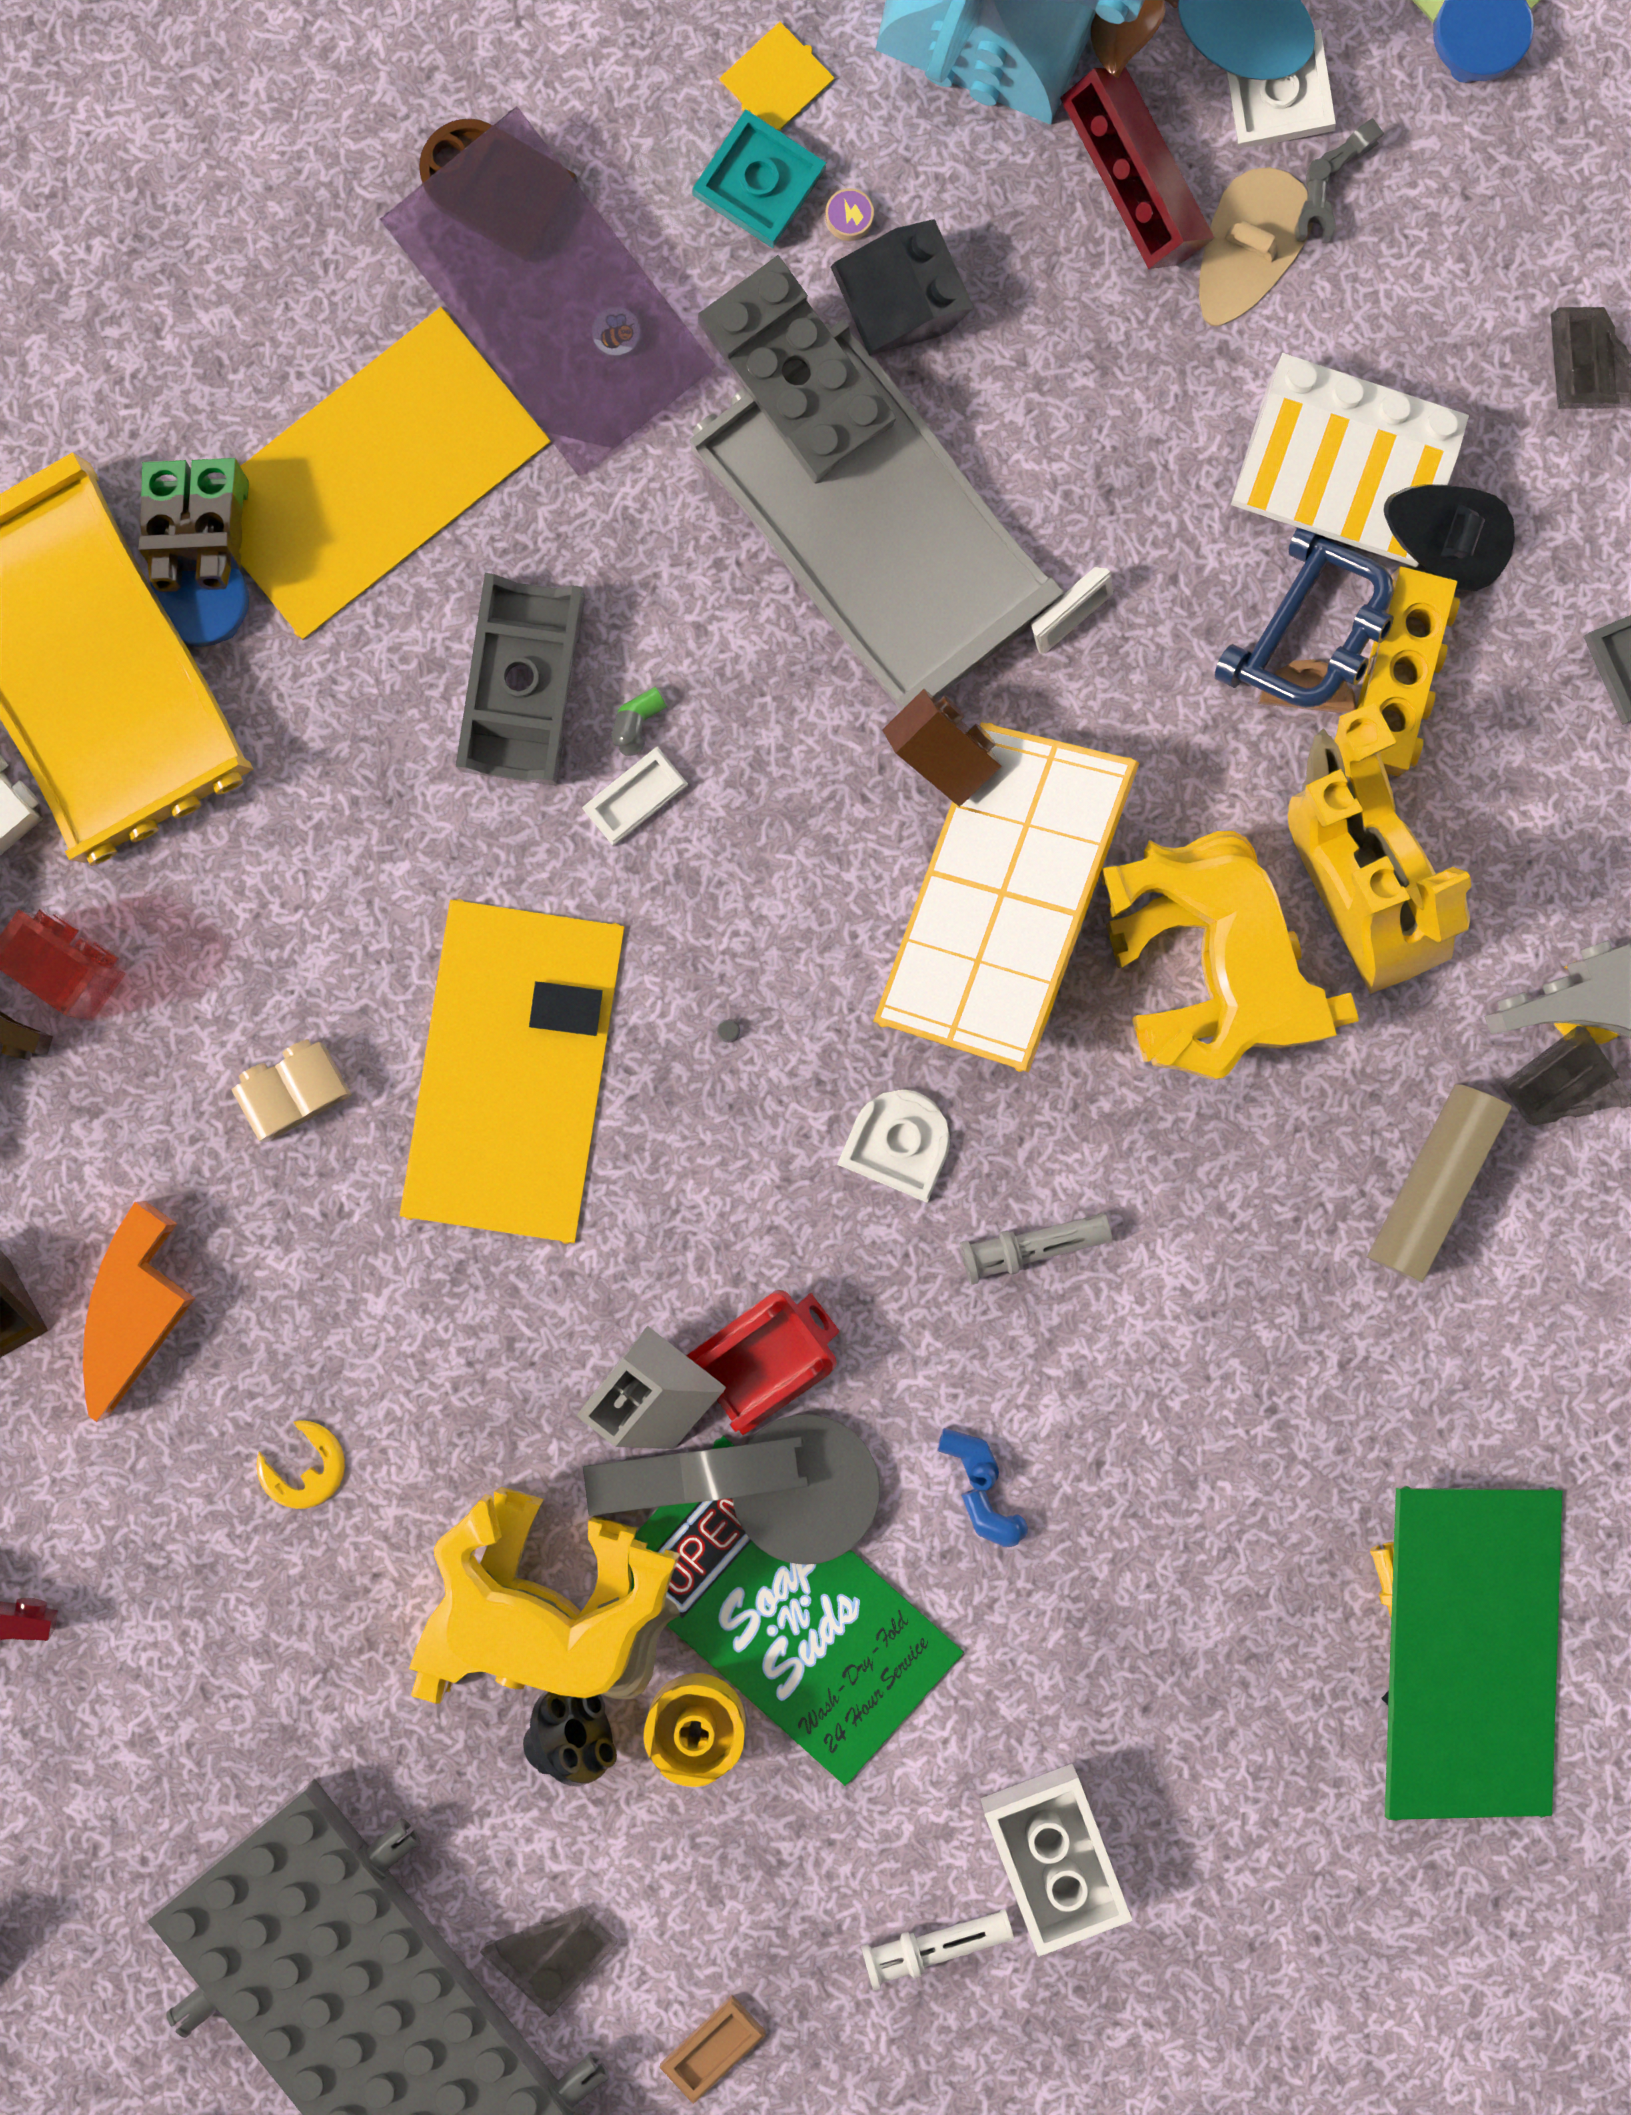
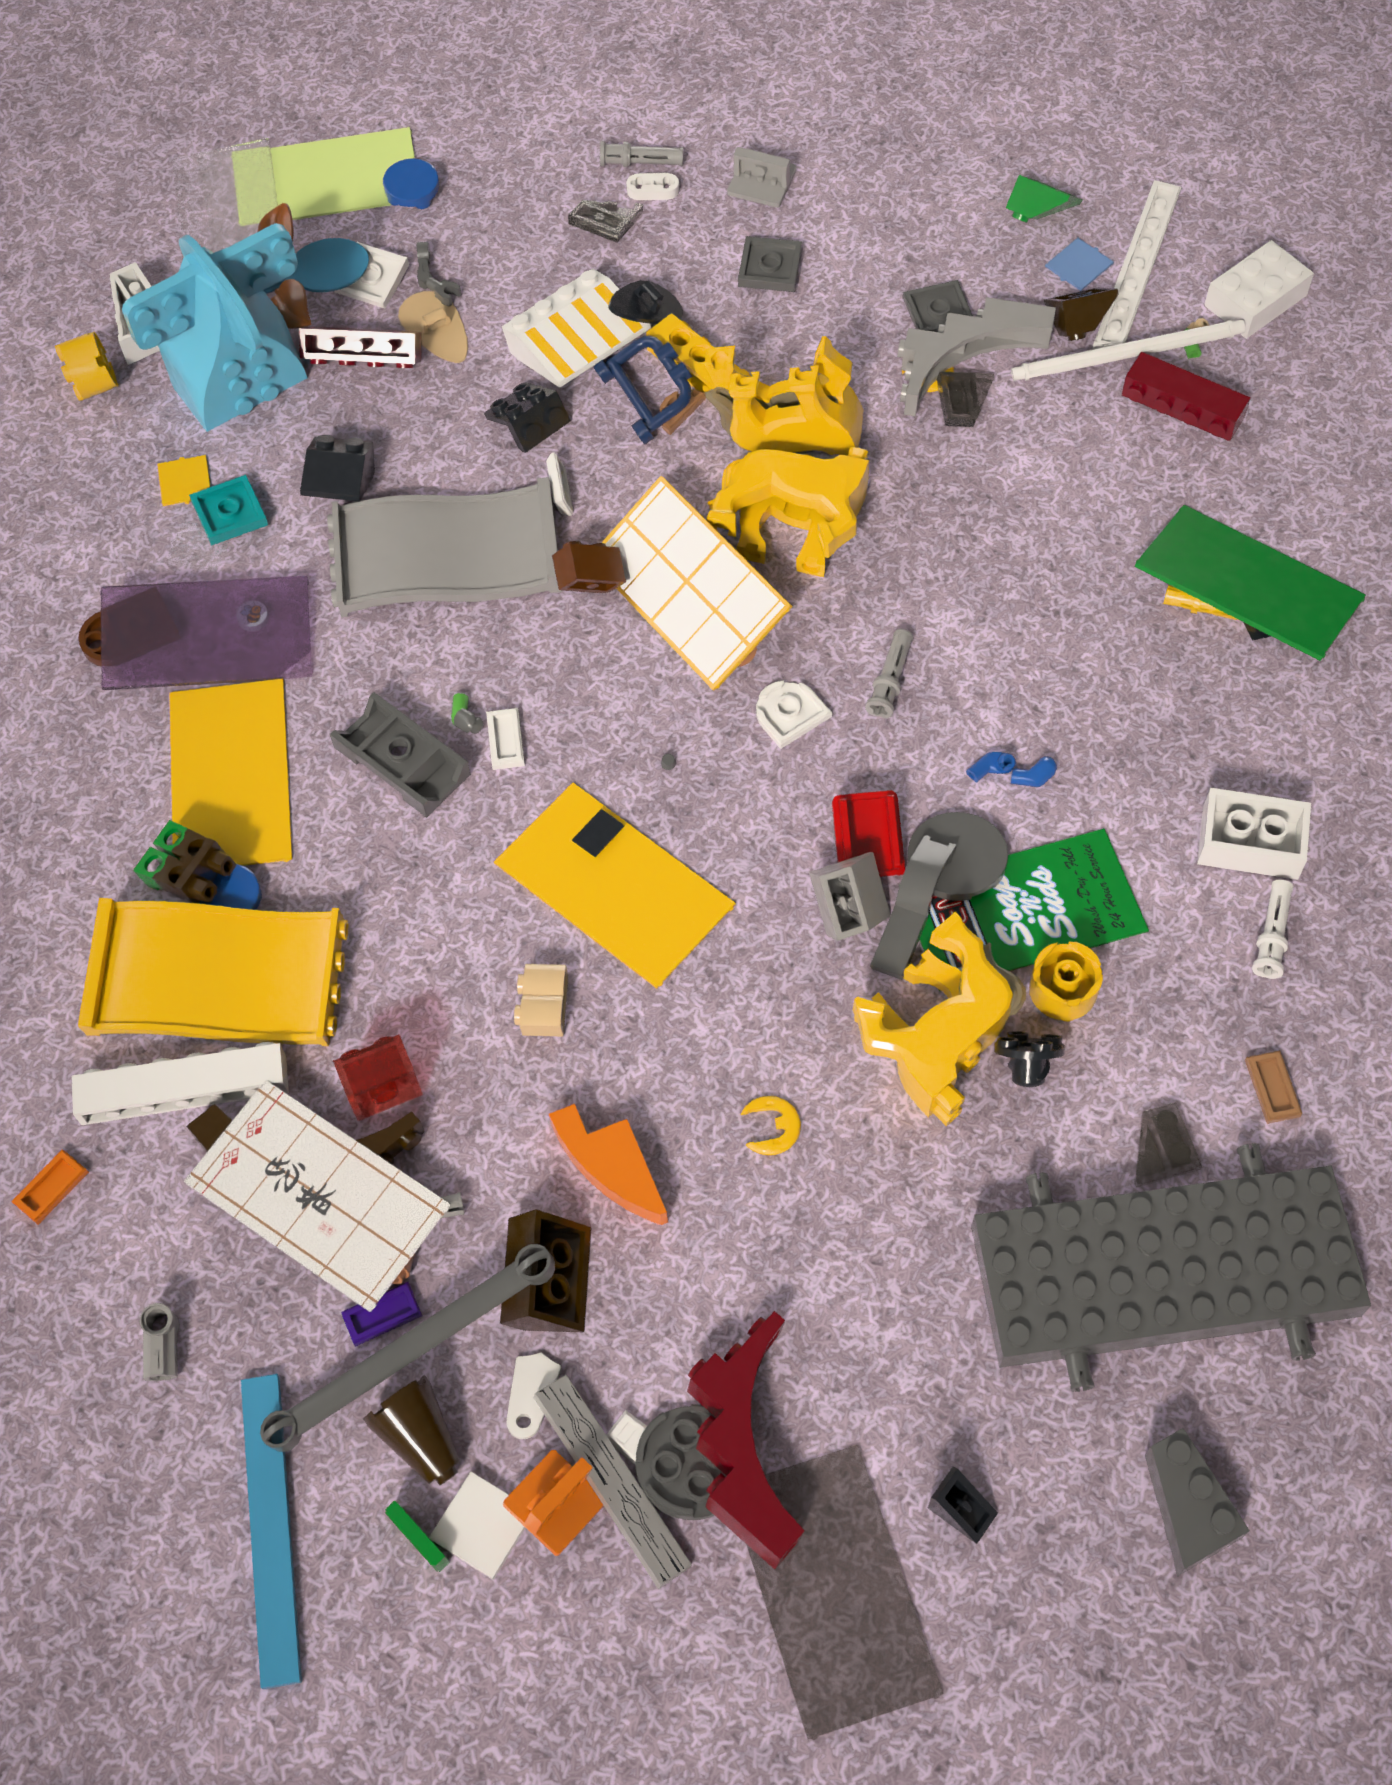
camera: 50 degrees left, 25 degrees down
(766, 326) = (309, 531): dark grey piece -> none
(849, 214) = (279, 482): tile -> none
(1167, 483) = (530, 414): none -> black bracket
(1439, 1182) = (980, 473): dark tan brick -> none

